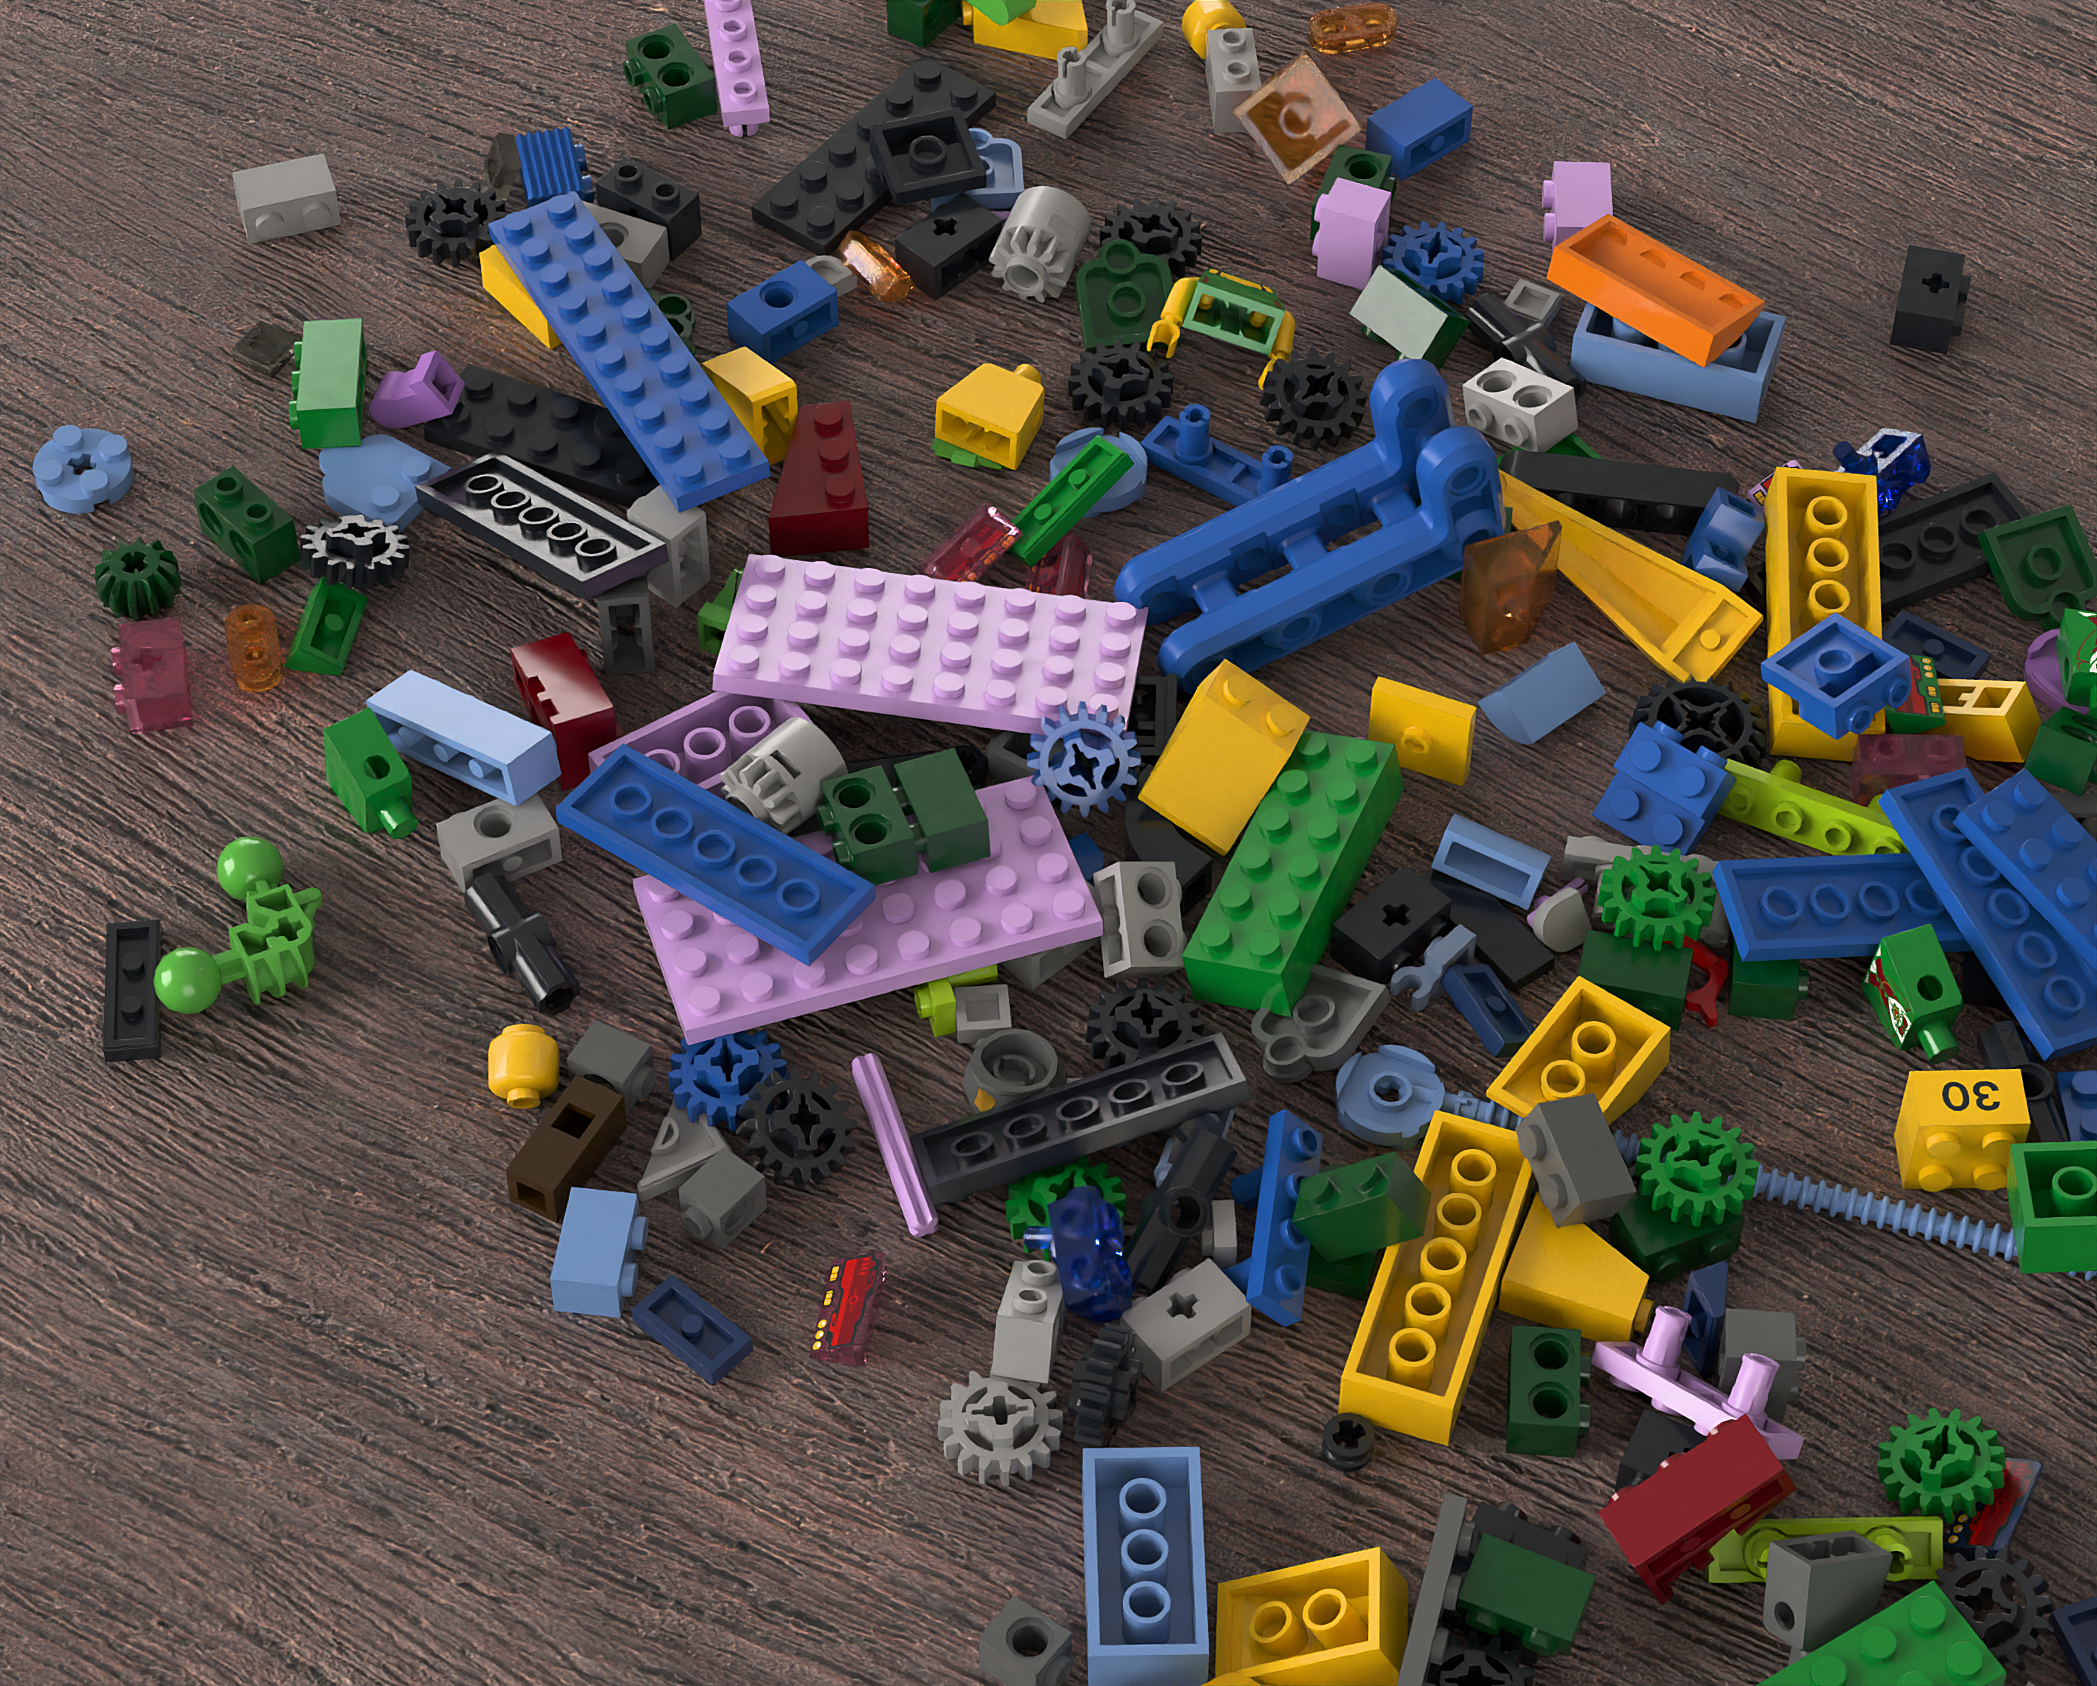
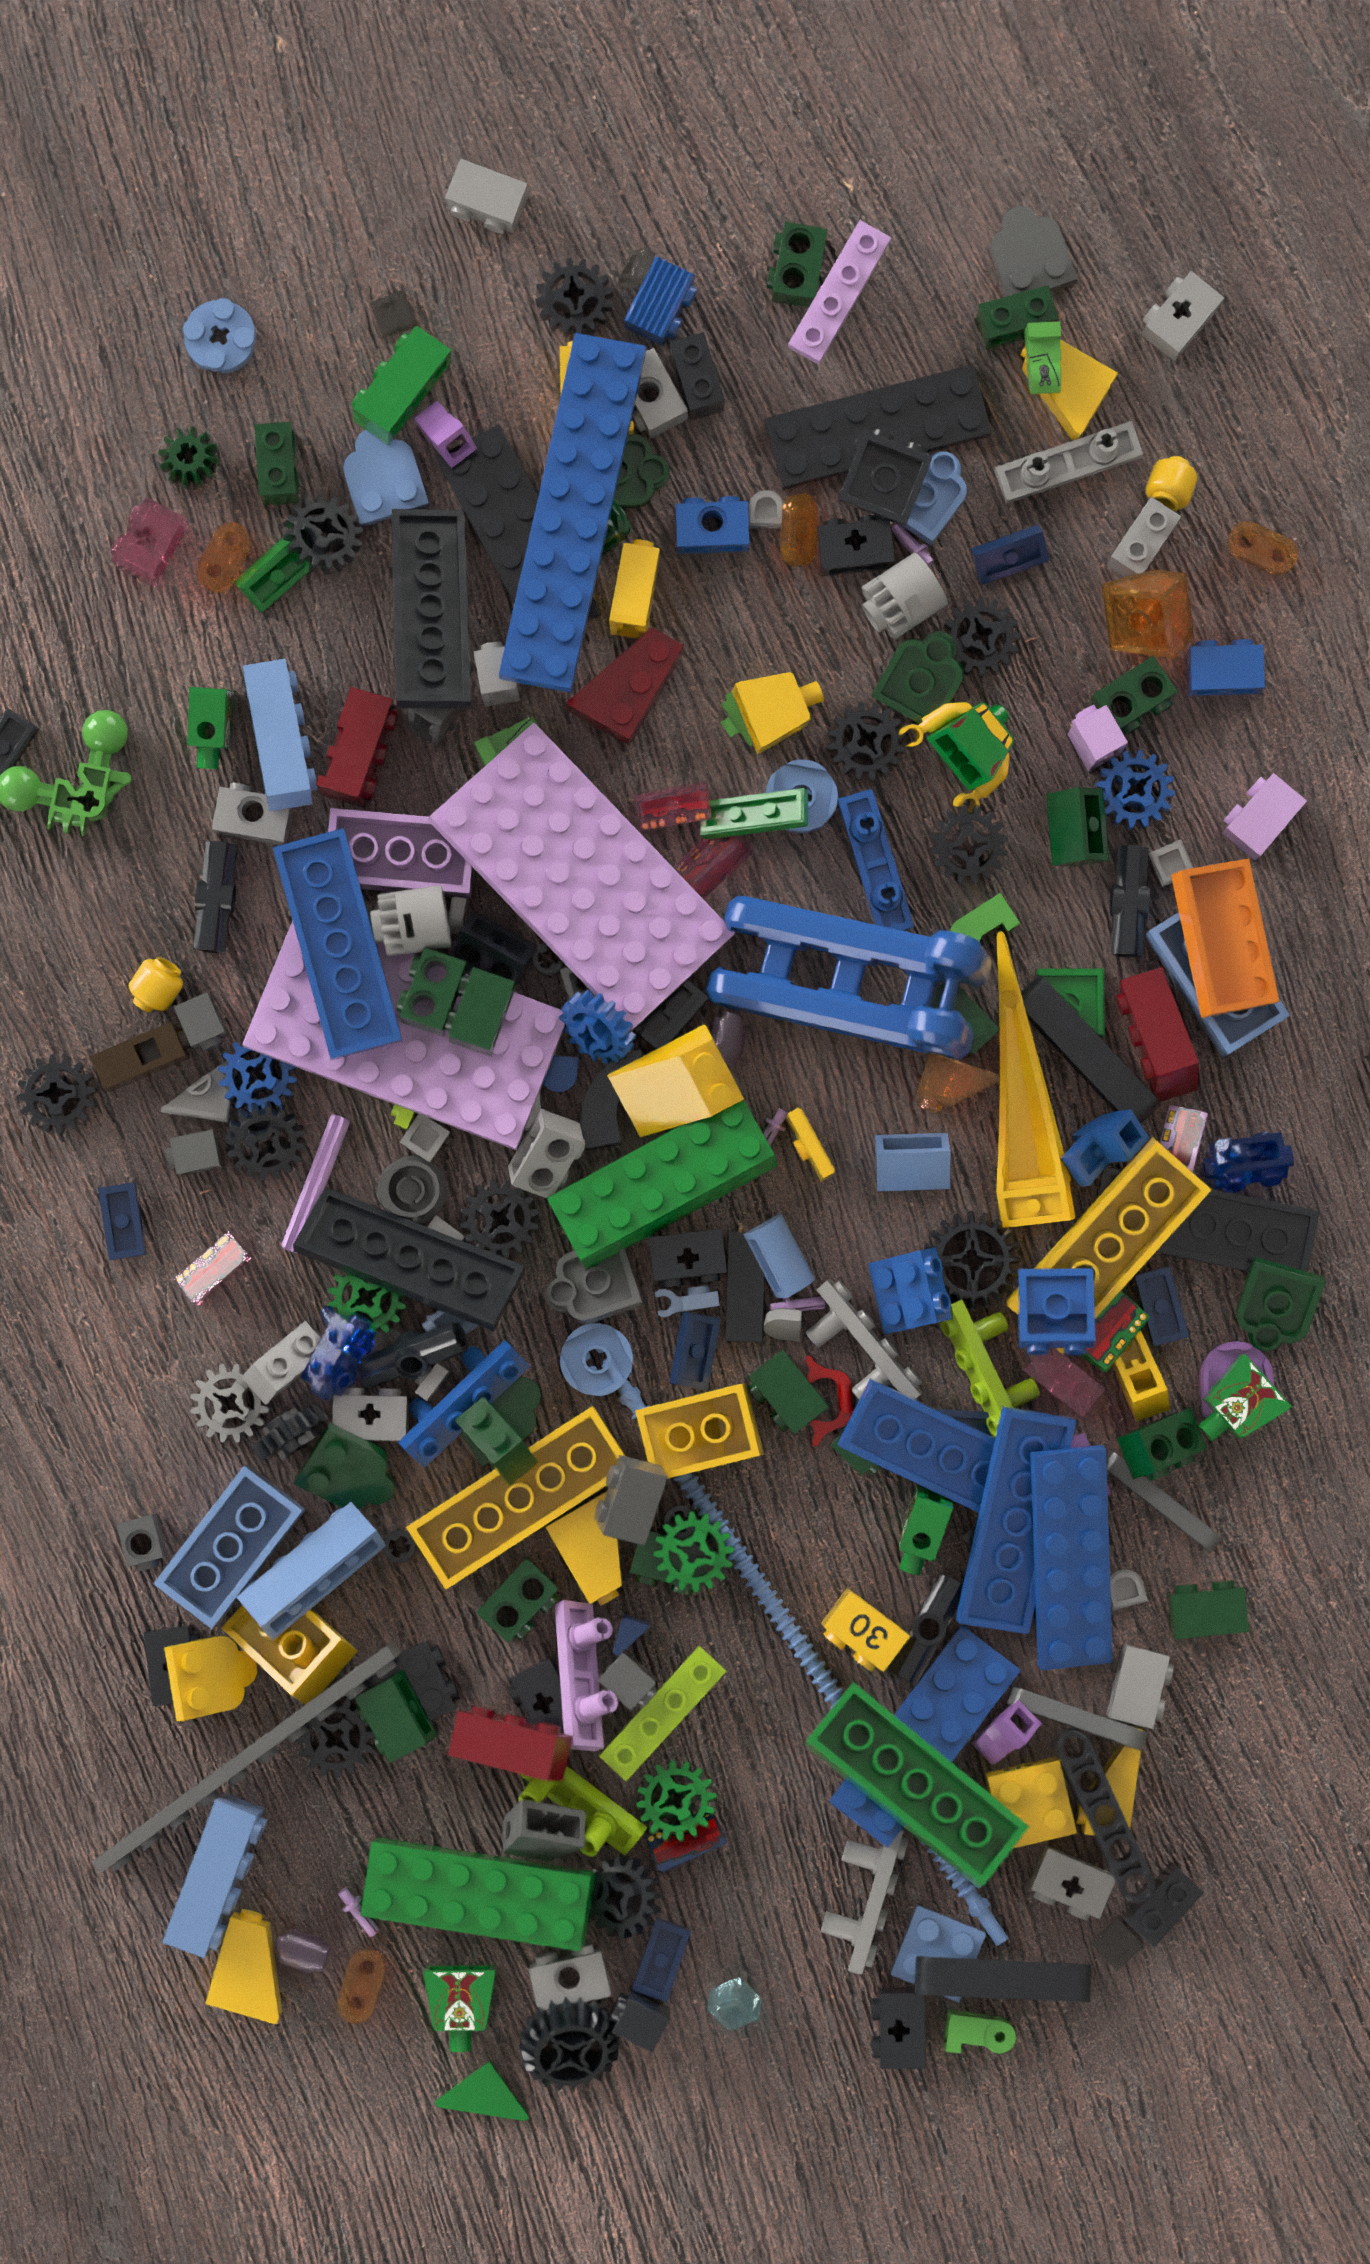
camera: 40 degrees right, 35 degrees up
(494, 1250) = (54, 1078): none -> black gear
(597, 1252) = (108, 1137): medium blue brick -> none
(1111, 165) = (1010, 554): none -> dark blue plate
(1210, 1389) = (346, 1470): none -> dark green plate
(1269, 1519) = (311, 1570): none -> medium blue brick
(1520, 406) = (1087, 948): light grey brick -> none
(1656, 897) = (850, 1361): green gear -> none
(1676, 424) = (1159, 1034): none -> dark red wedge
(1833, 1367) = (662, 1713): none -> lime plate

